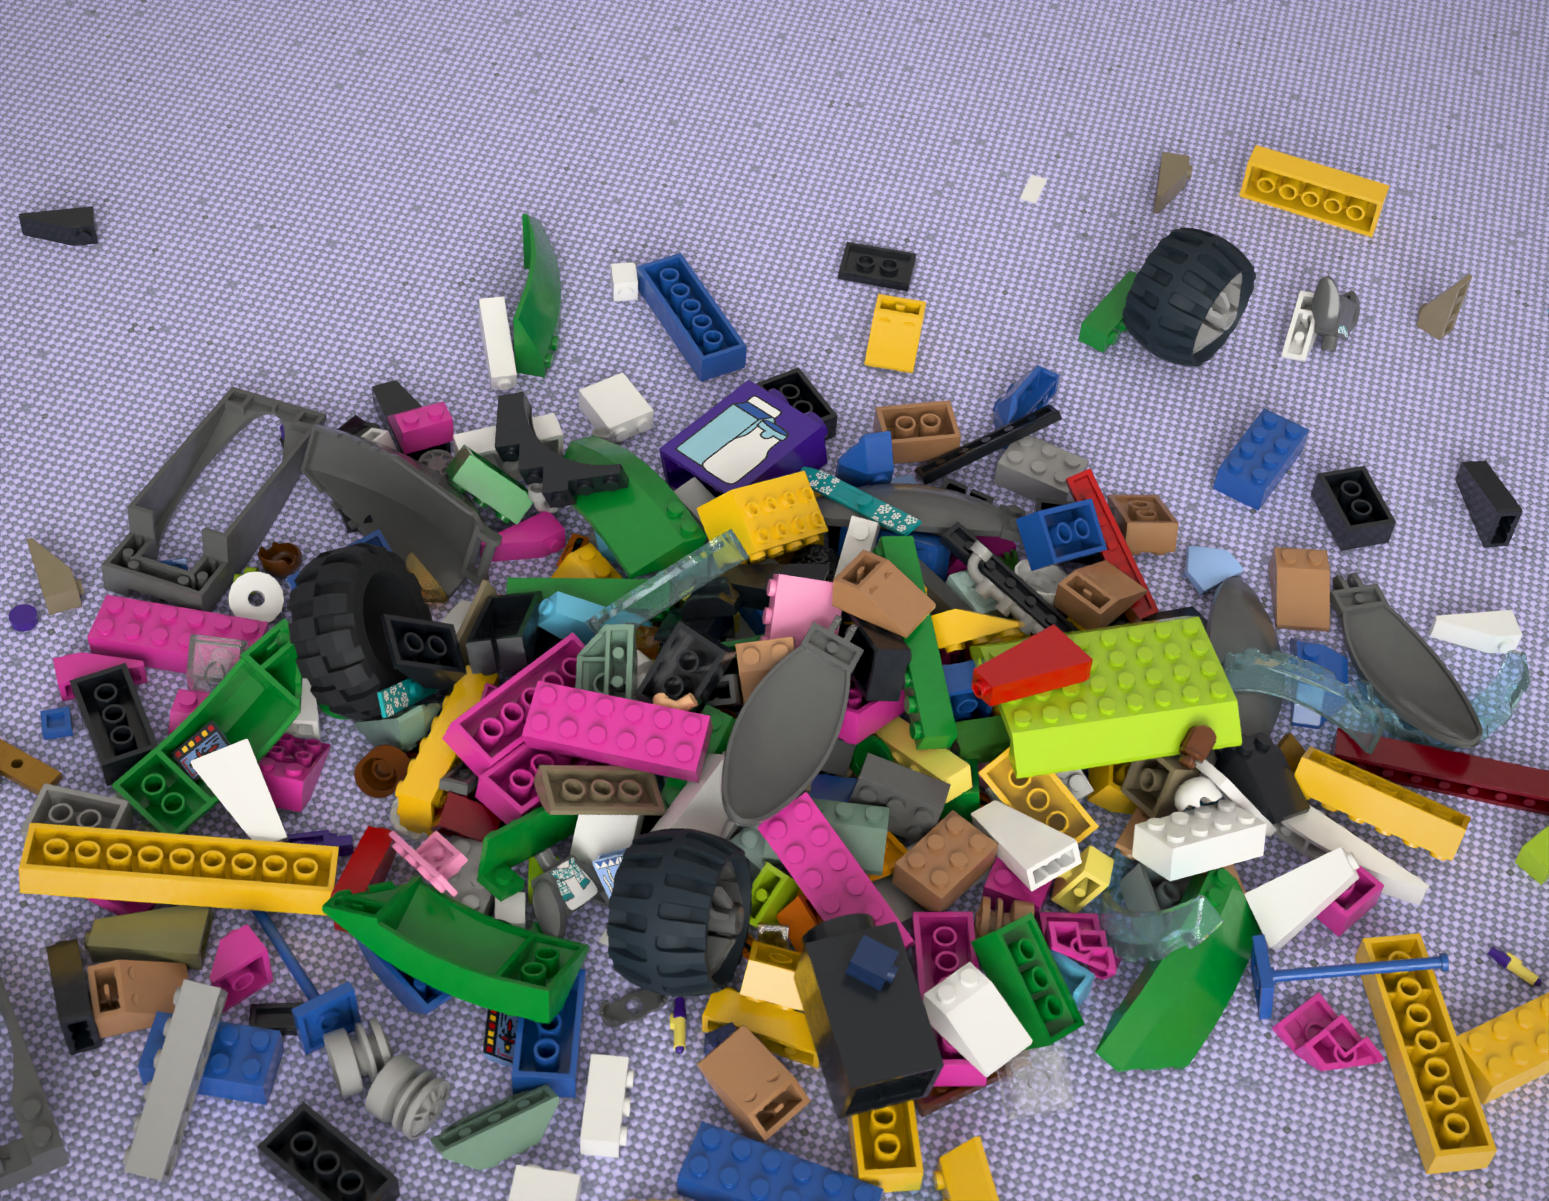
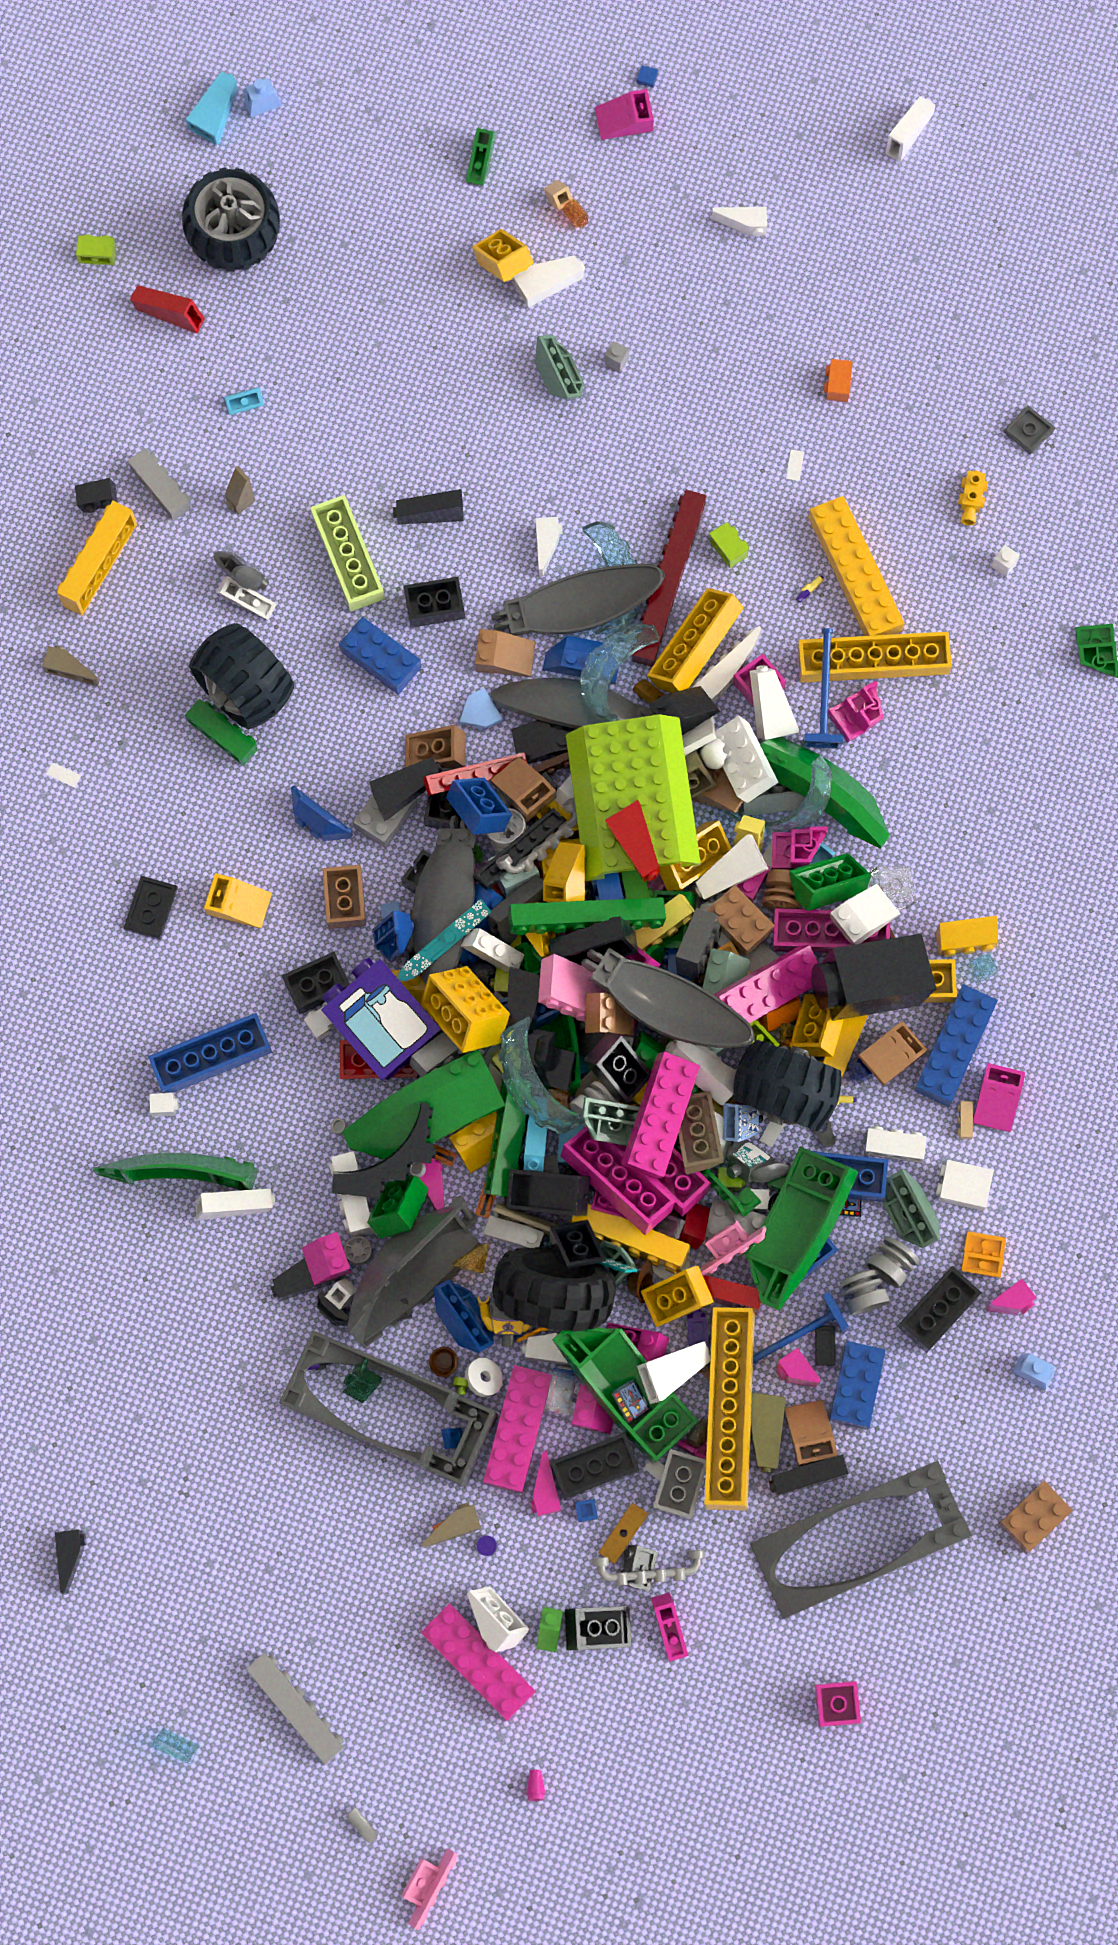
camera: 80 degrees left, 25 degrees up
(175, 1081) = (885, 1399): light grey brick -> none
(256, 468) = (361, 1382): none -> clear green bracket
(358, 803) = (677, 1296): none -> yellow brick
(616, 406) = (304, 1115): white brick -> none
(685, 703) = (646, 1076): light nougat arm -> none
(873, 963) = (866, 964): dark blue brick -> none
(880, 594) = (571, 929): medium nougat slope -> none
(987, 444) = (364, 846): black tile -> none
(1067, 454) = (402, 786): none -> black slope
(1196, 746) = (687, 747): reddish brown arm -> none
(1394, 418) = (347, 553): none -> yellowish green brick
(1402, 193) = (95, 495): none -> black brick
(1429, 247) = (159, 484): none -> light grey brick

